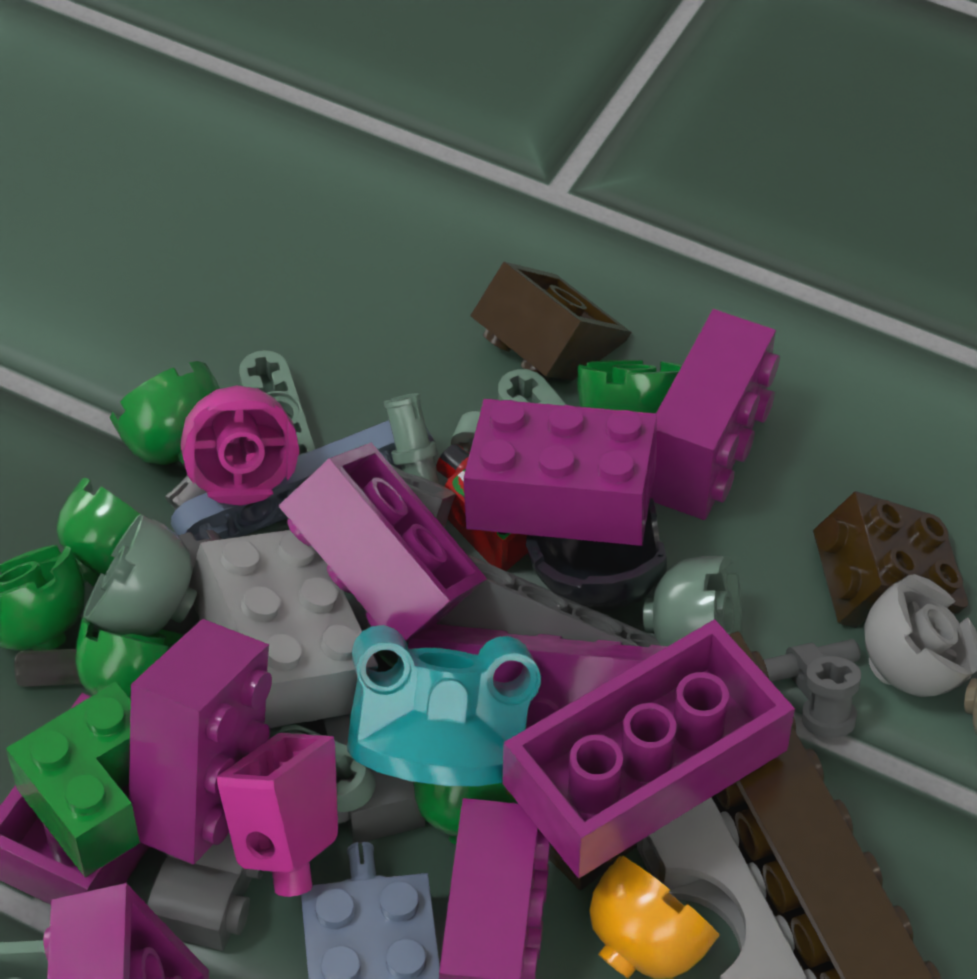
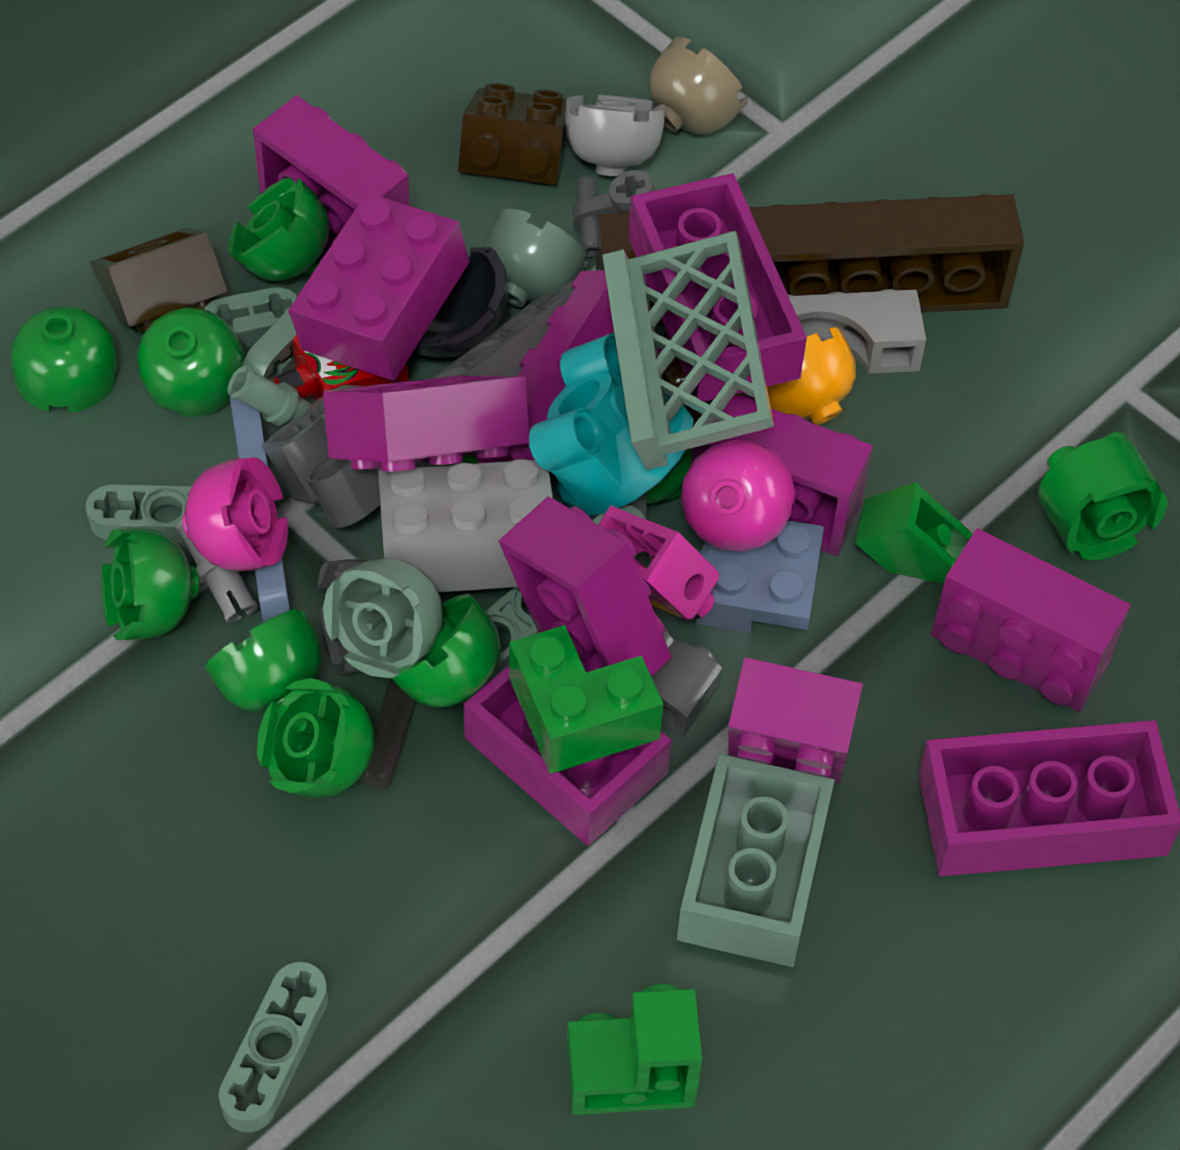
camera: 75 degrees left, 5 degrees up
(402, 861) = (738, 495): none -> dark pink cylinder
(423, 287) = (63, 359): none -> green cylinder
(451, 370) = (189, 361): none -> green cylinder
(505, 686) = (638, 345): none -> sand green fence

